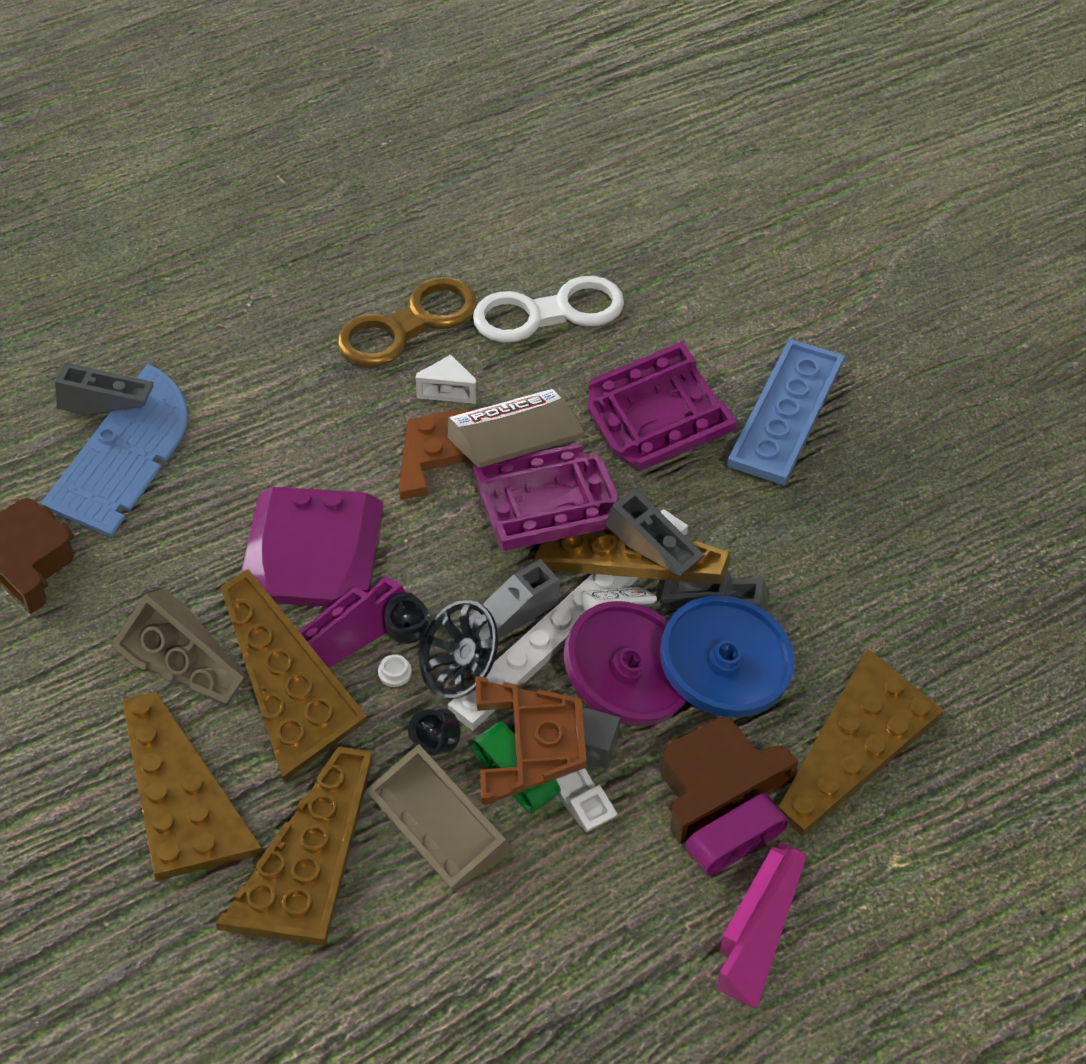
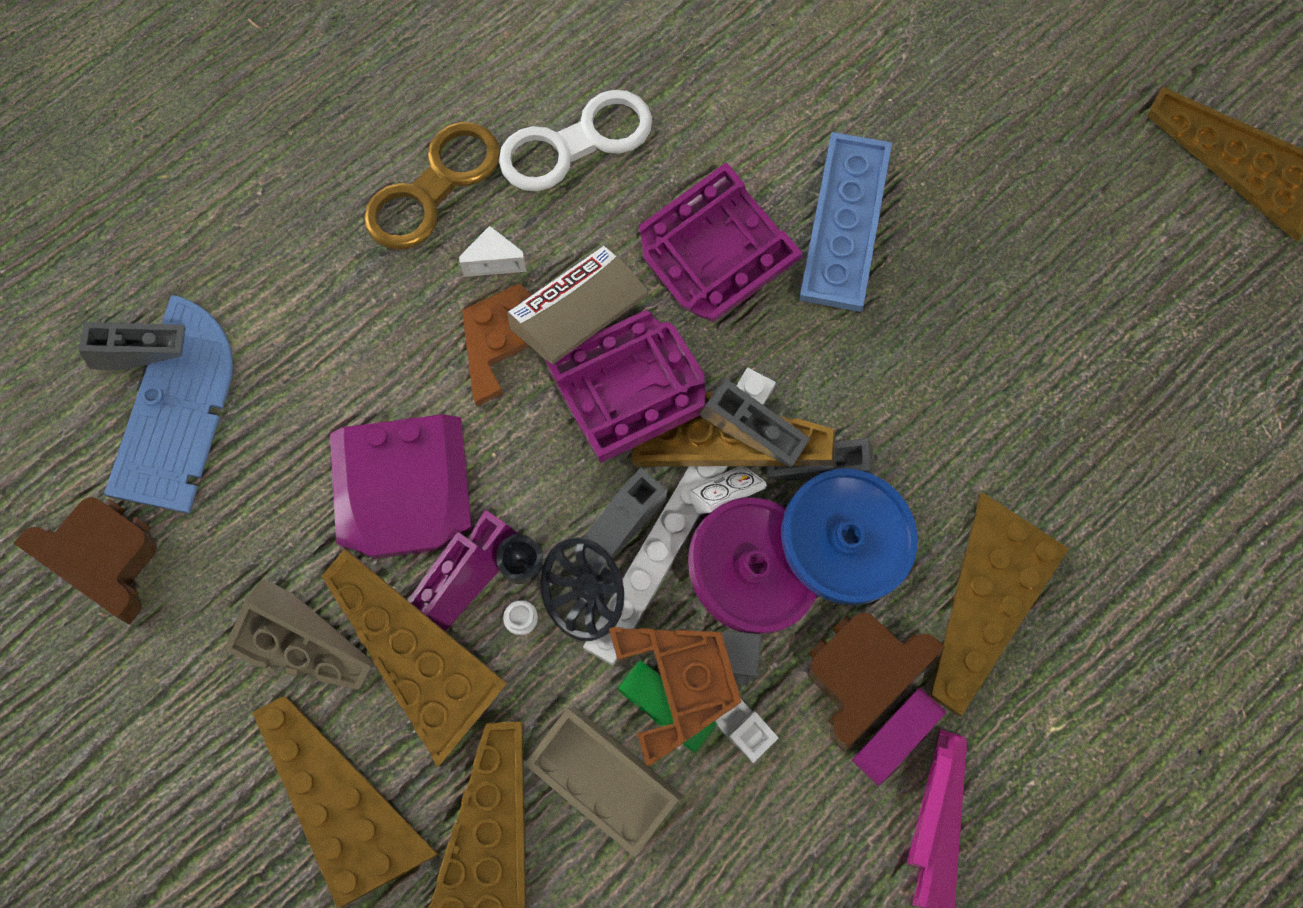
camera: 10 degrees left, 20 degrees up
(438, 734) = (579, 685): black piece -> none

